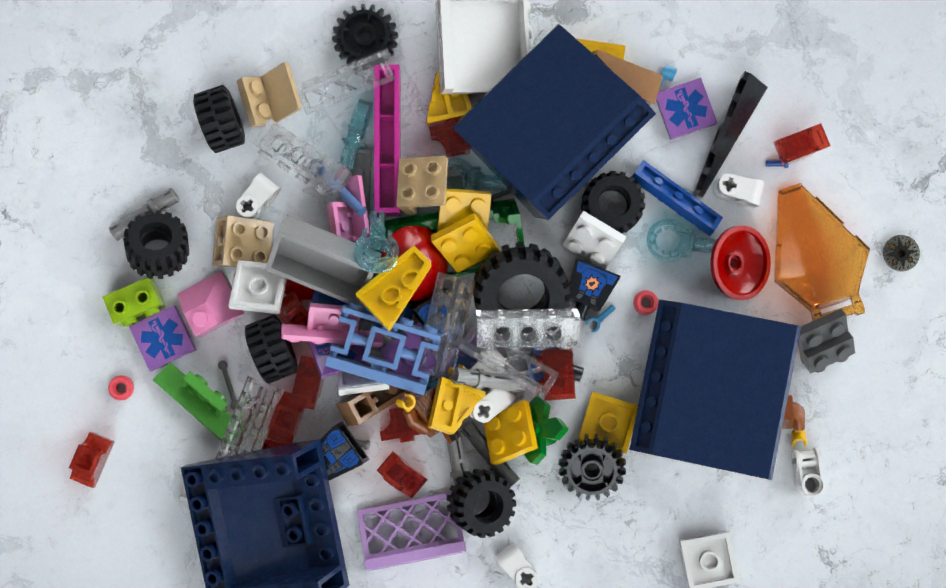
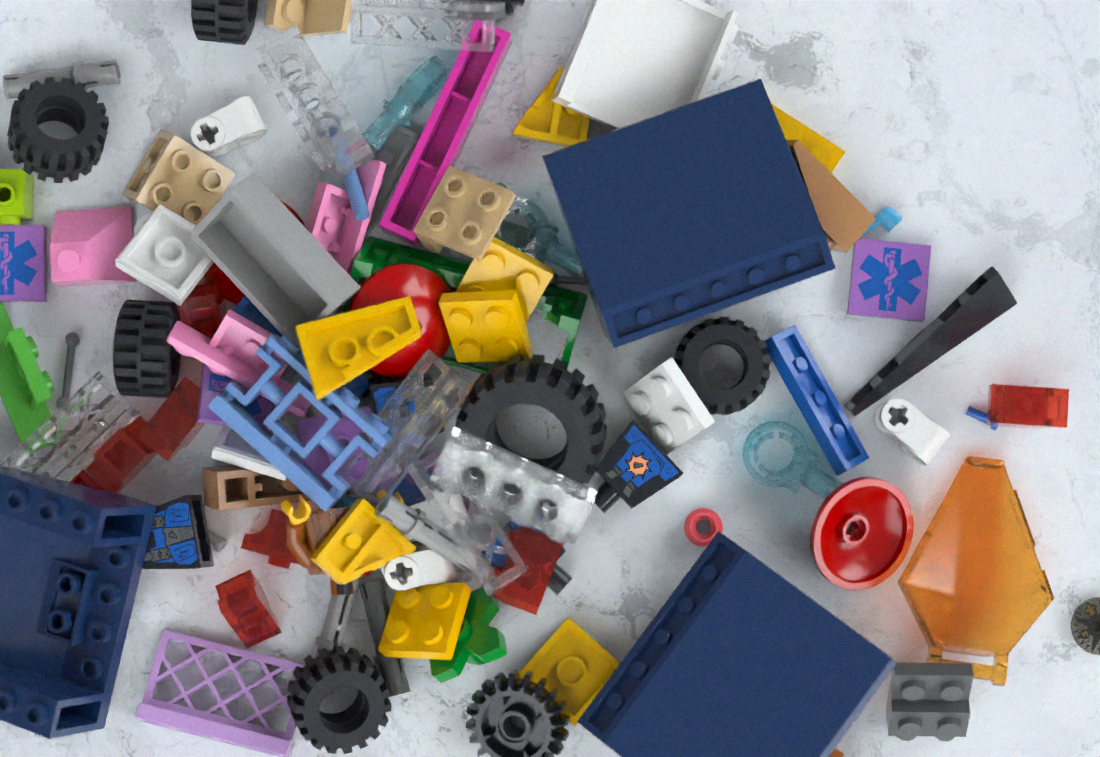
camera: 30 degrees right, 0 degrees up
(376, 241) = (360, 267): clear light blue pin -> none
(449, 139) = (535, 178): clear red brick -> none
(601, 317) = (630, 519): dark azure hand -> none

